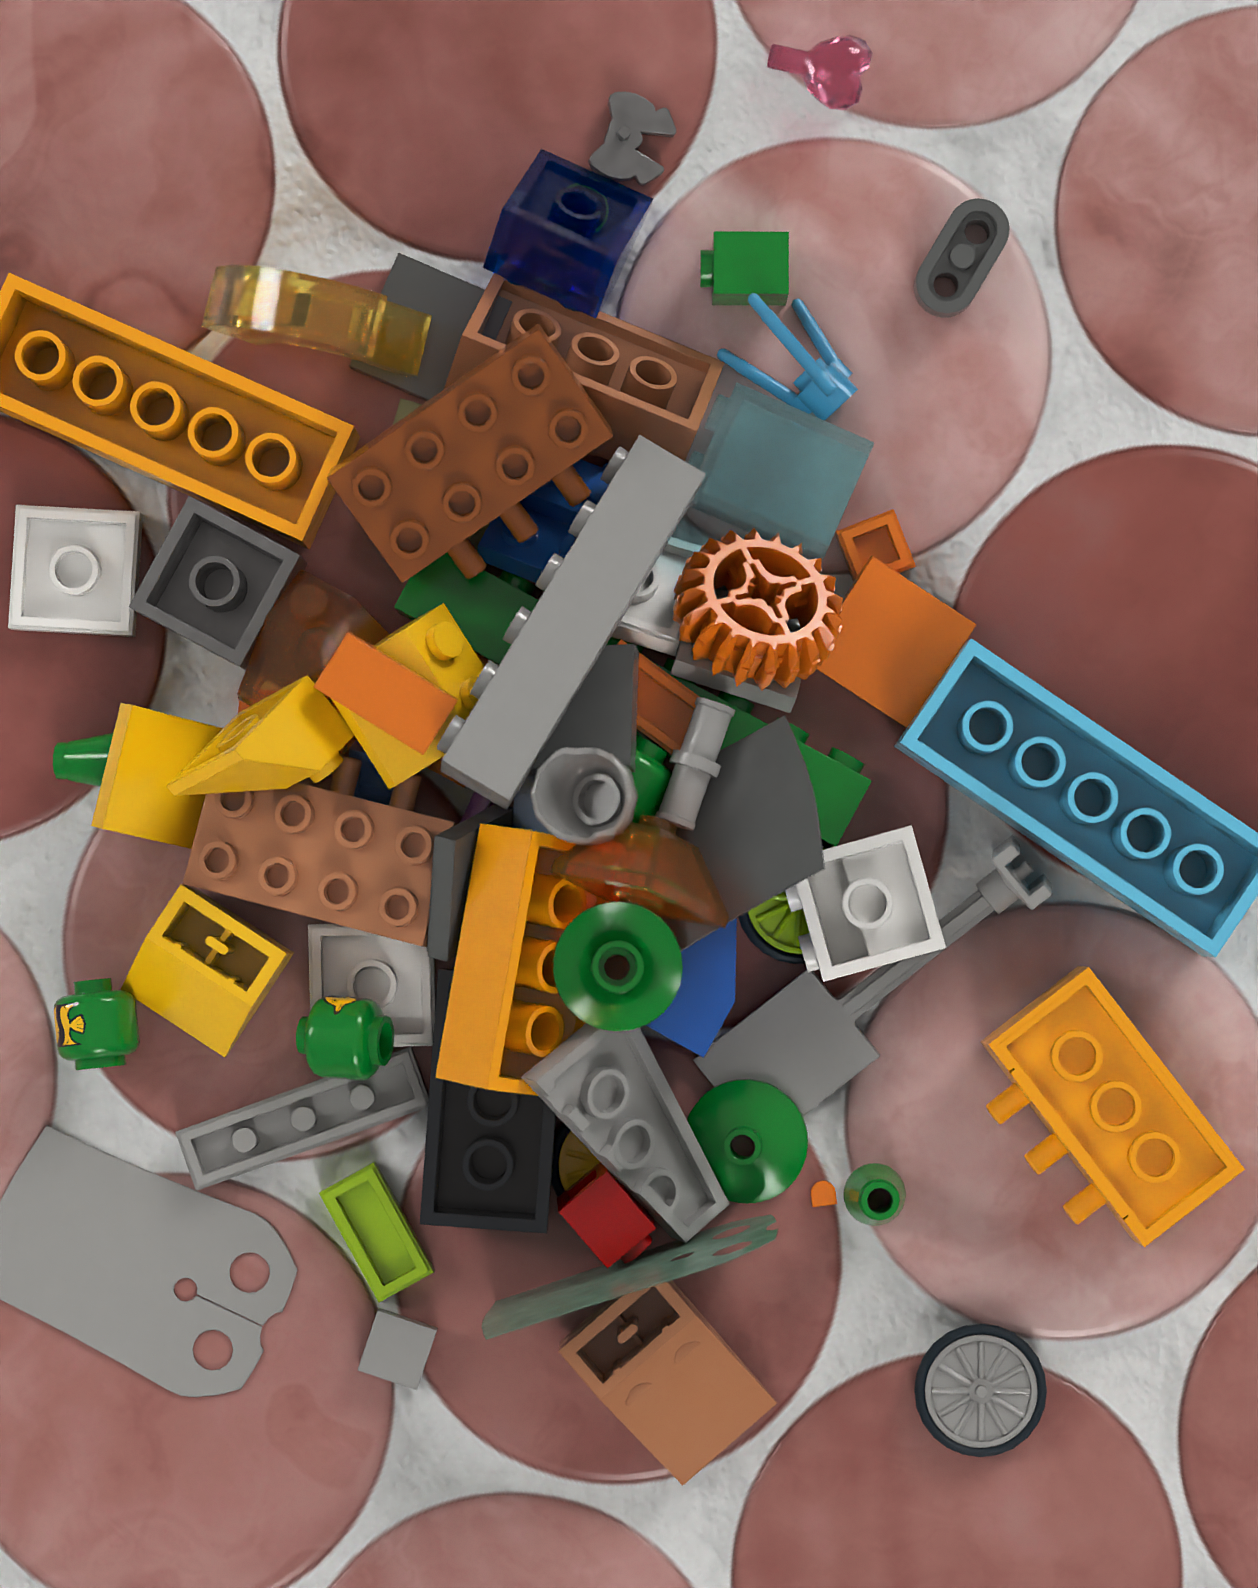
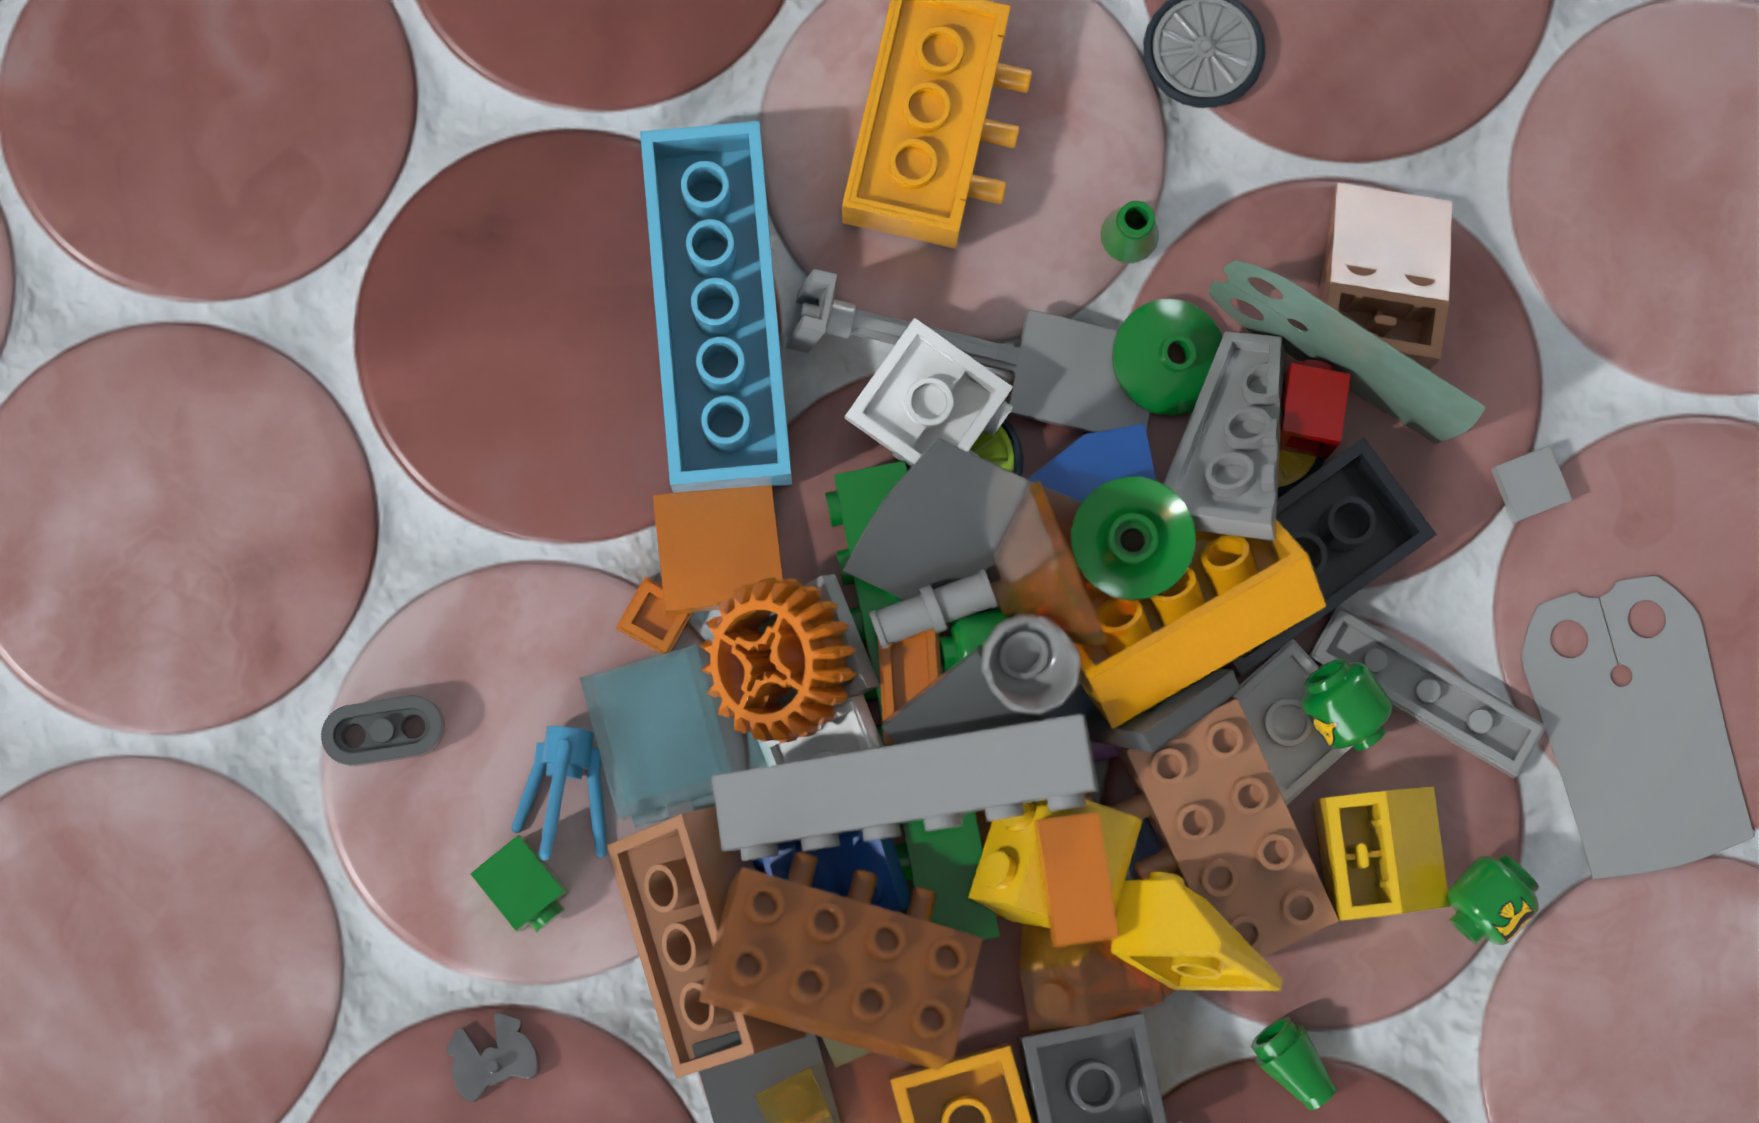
camera: 135 degrees left, 5 degrees down
(141, 761) = (1276, 1026): yellow tile -> none
(376, 1231) = (1461, 570): lime tile -> none
(567, 233) = (605, 1045): clear blue slope -> none
(823, 1194) = (1160, 272): orange piece -> none
(828, 69) = (317, 951): clear pink rock -> none

